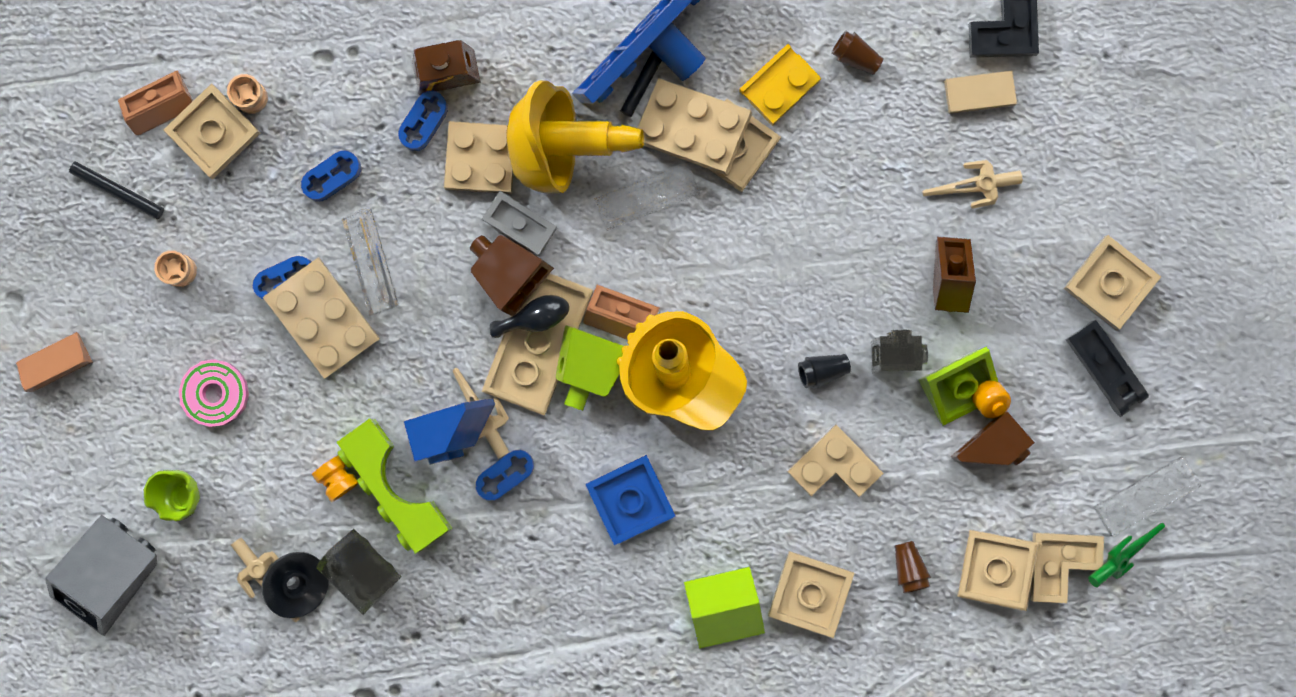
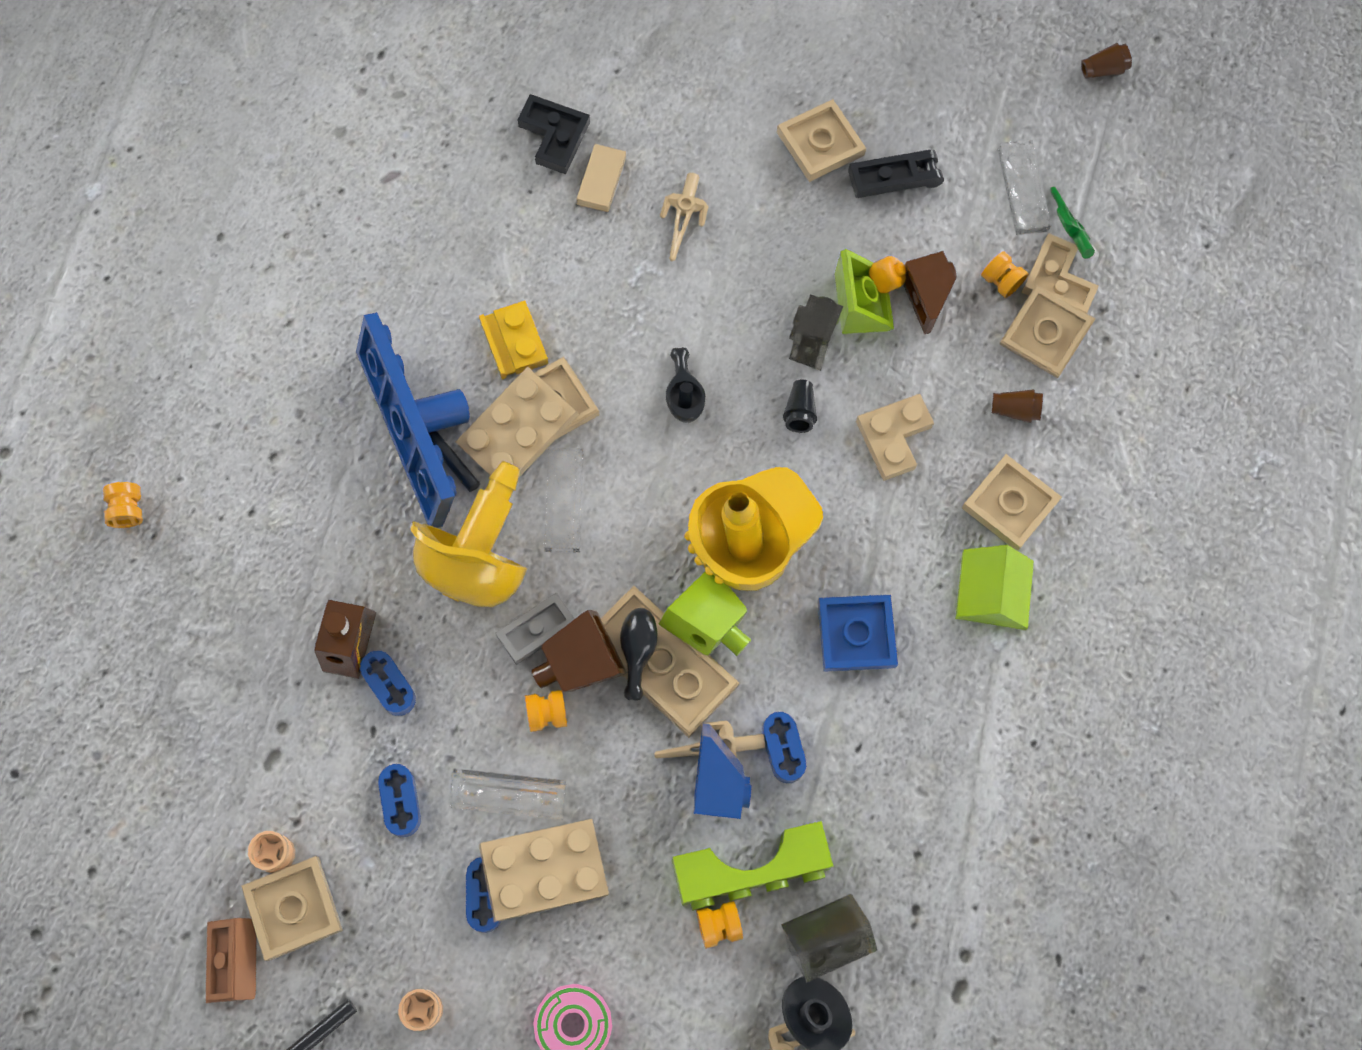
camera: 75 degrees left, 15 degrees down
(451, 261) = (543, 710): none -> light orange wheel
(477, 158) = (451, 642): tan plate -> none
(616, 312) = (667, 572): nougat slope -> none
(792, 259) = (684, 392): none -> black piece
(857, 53) = (515, 262): reddish brown cone -> none
(953, 275) = (760, 260): reddish brown slope -> none
(1044, 502) = (1004, 274): none -> light orange wheel

